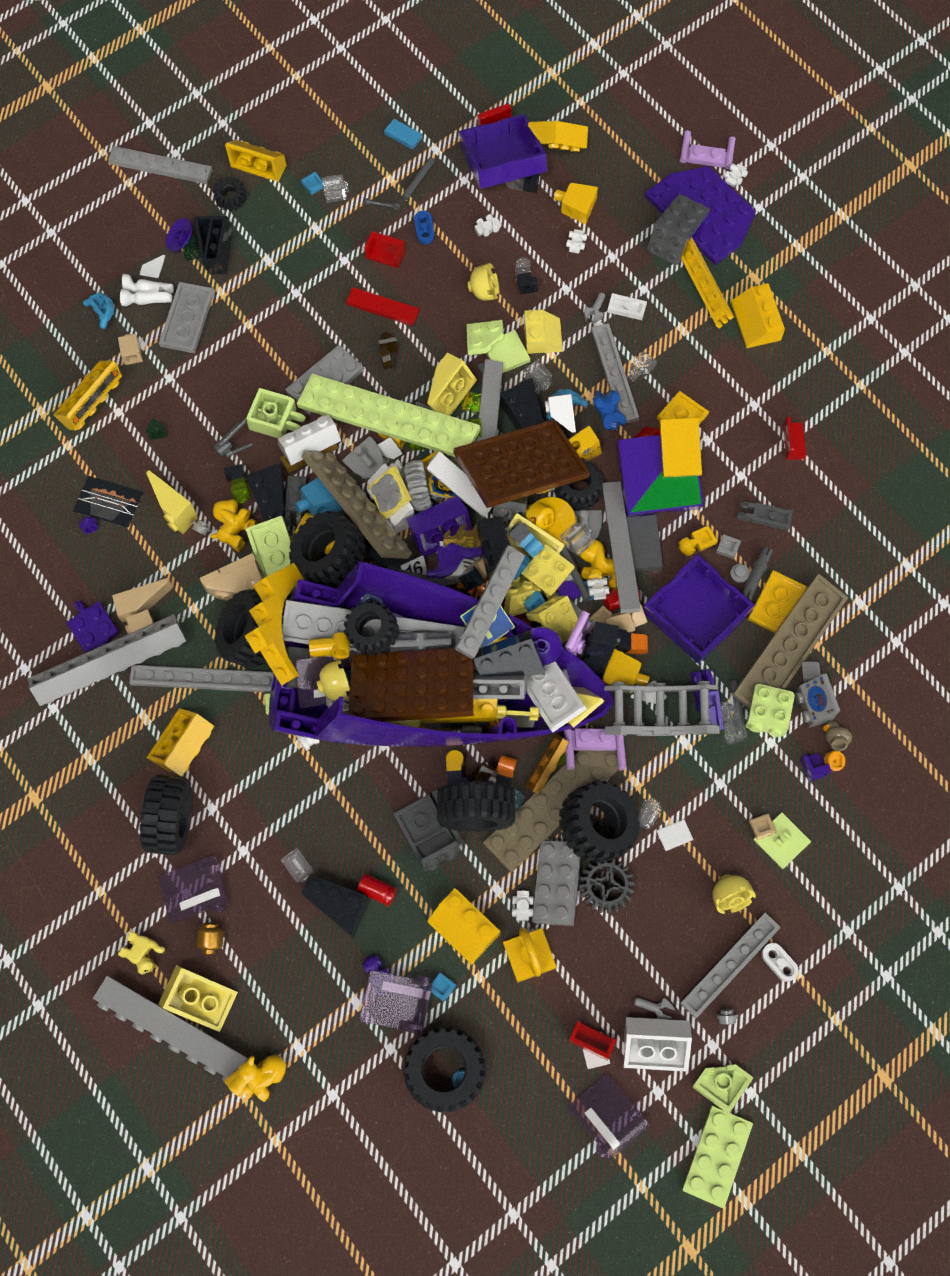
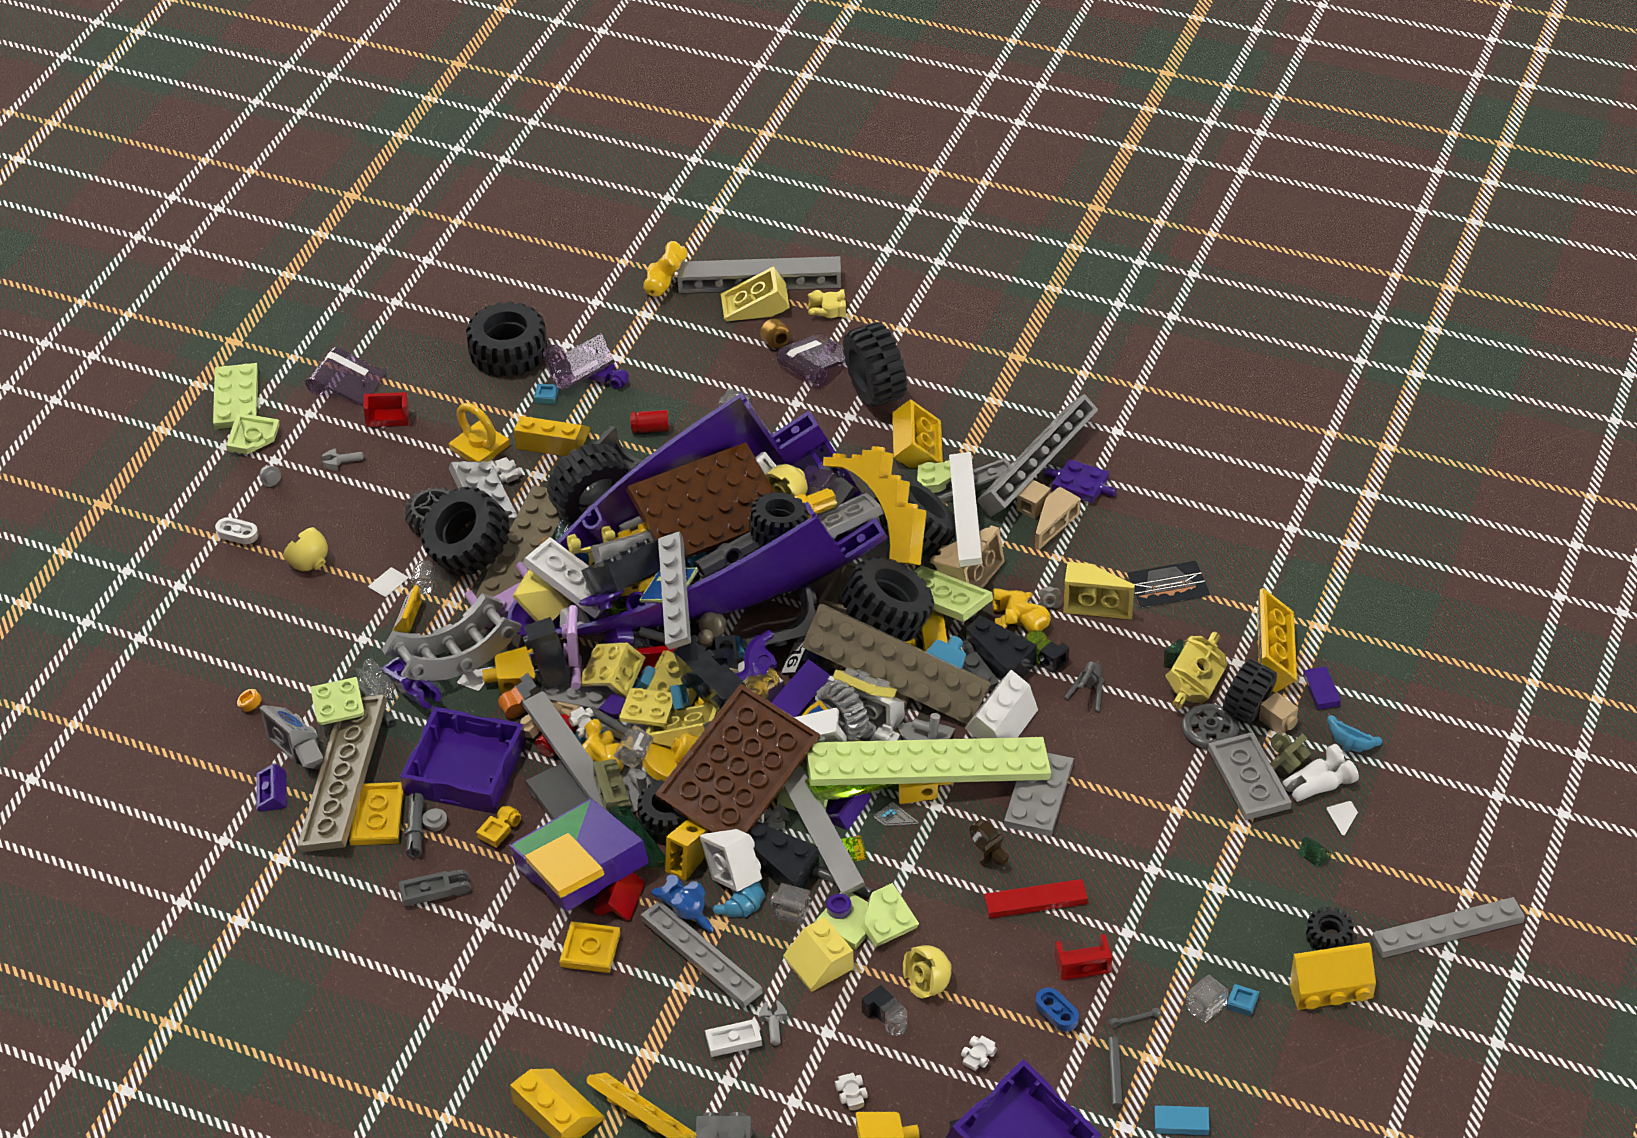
camera: 150 degrees right, 25 degrees down
(84, 358) = (1321, 688): none -> dark purple tile
(88, 525) = (1165, 551): dark purple plate -> none
(139, 359) = (1249, 690): none -> black tyre
(150, 314) = (1290, 753): none -> olive hips
(152, 405) = (1188, 679): none -> light yellow plate
(178, 235) = (1340, 851): dark purple dish -> none
(187, 380) = (1209, 710): none -> dark grey plate
(194, 689) = (934, 475): none -> yellowish green plate
(207, 616) = (965, 509): none -> white tile
(214, 242) = (1290, 859): black wedge -> none
(273, 414) = (1060, 720): yellowish green hinge -> none
(336, 902) = (682, 395): black wedge -> none
(450, 384) = (885, 833): light yellow slope -> none
(509, 357) = (838, 906): none -> dark purple tile
(525, 539) = (688, 710): leg -> none
(610, 473) = (654, 853): none -> clear green plate
(610, 514) = (610, 784): none -> olive hinge
(641, 365) = (673, 983): clear plate -> none
(657, 1044) = (327, 434): white slope -> none
(675, 787) = (408, 611): none -> yellow slope
(728, 546) = (461, 842): light grey tile -> none
(730, 965) = (283, 510): light grey plate -> none
(762, 826) = (301, 619): tan tile -> none
(785, 843) = (276, 622): yellowish green piece -> none
(794, 440) = (438, 983): red panel -> none
(814, 767) = (268, 684): dark purple panel -> none
(837, 736) = (250, 717): dark tan animal -> none
(846, 667) = (271, 788): none -> dark purple slope

